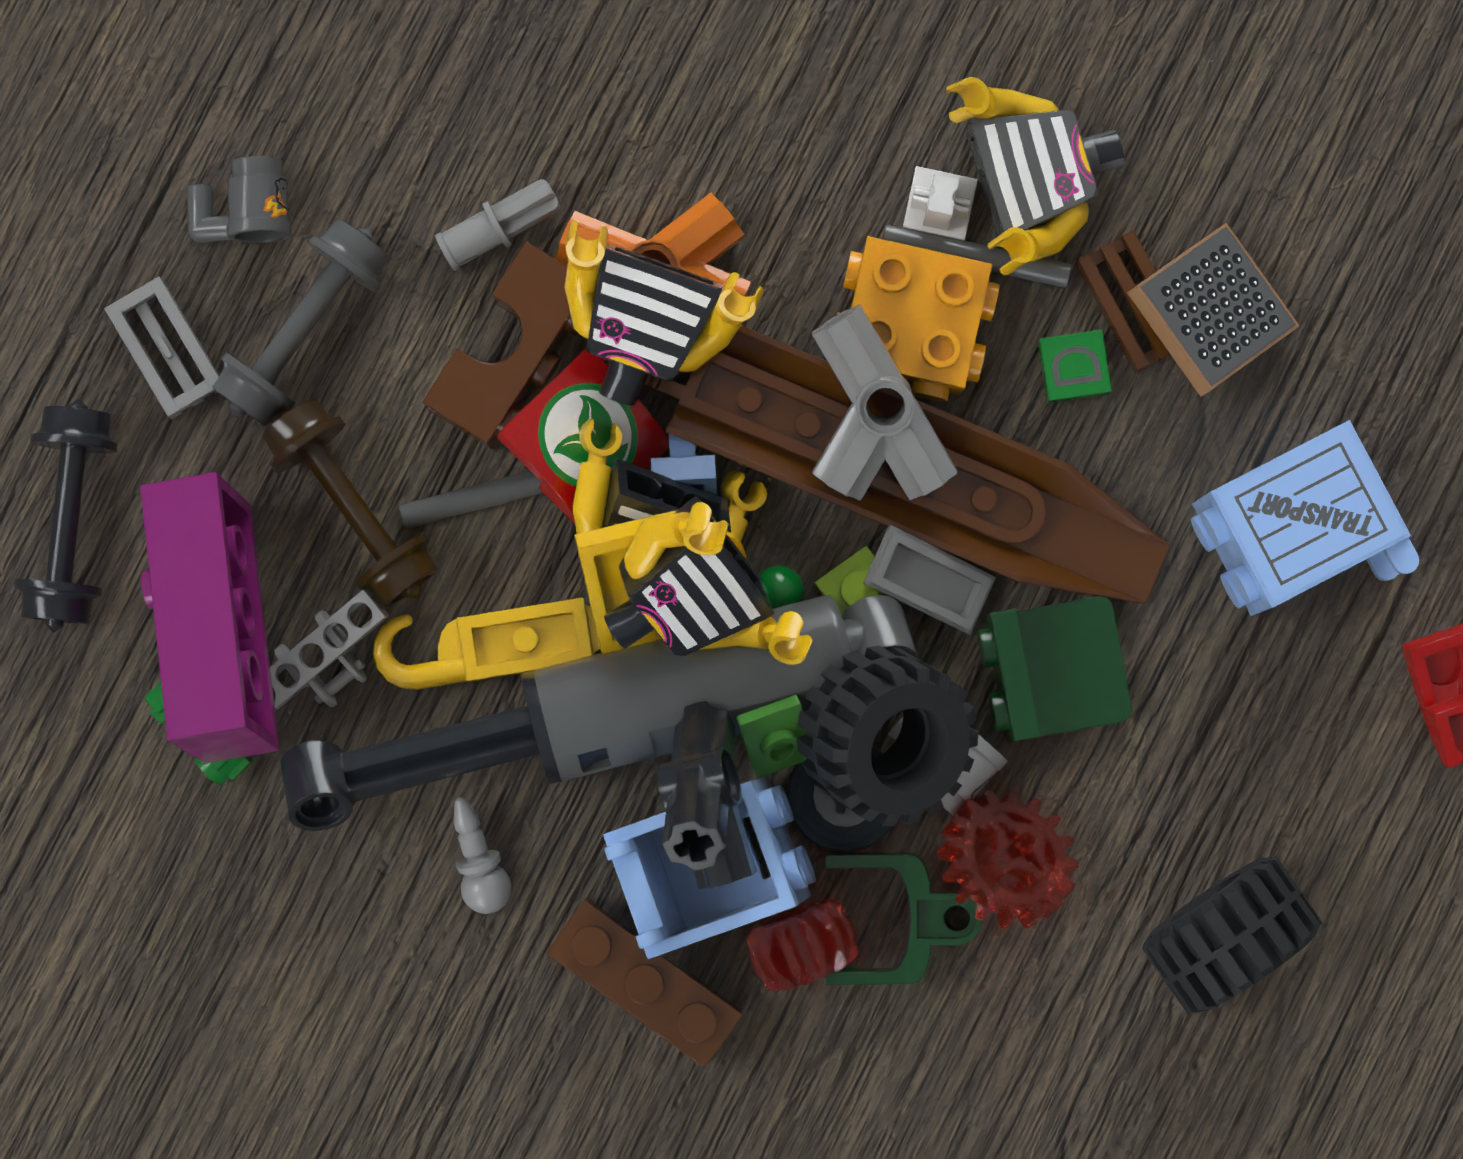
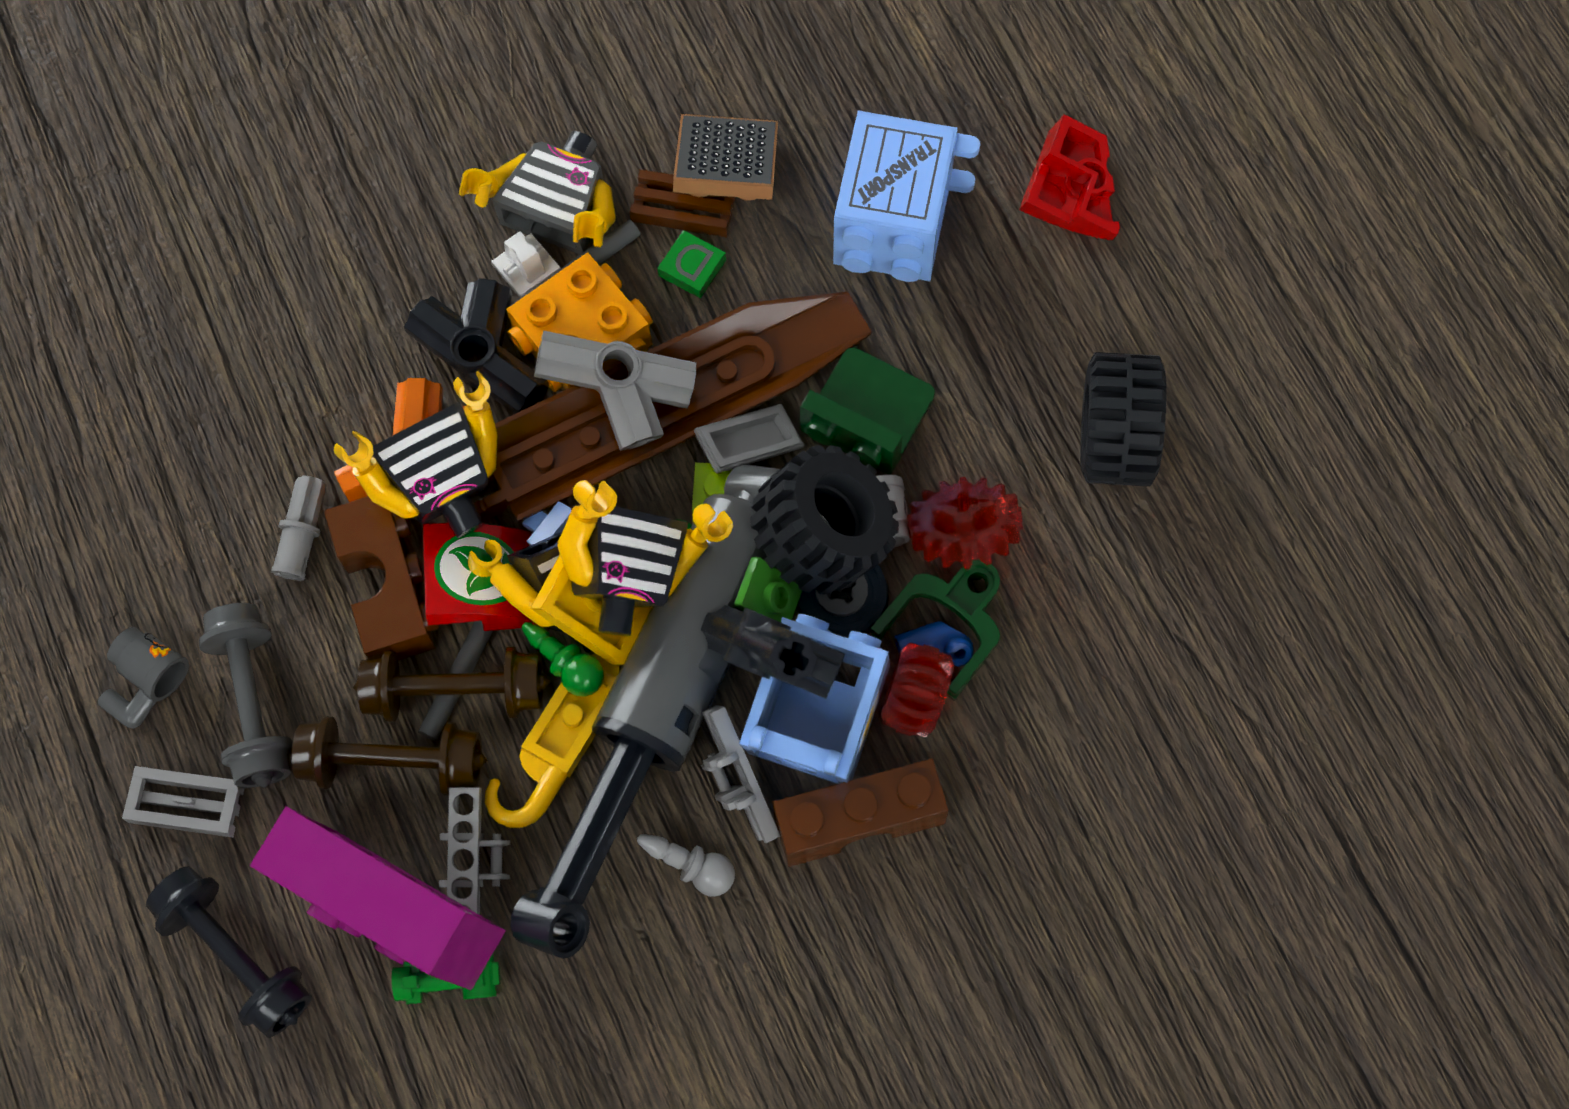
camera: 45 degrees left, 15 degrees down
(409, 441) = (382, 686): none -> dark brown piece
(564, 618) = (579, 672): none -> green bar
(569, 852) = (737, 797): none -> light grey piece
(834, 217) = (478, 330): none -> black piece
(875, 922) = (939, 636): none -> blue arm

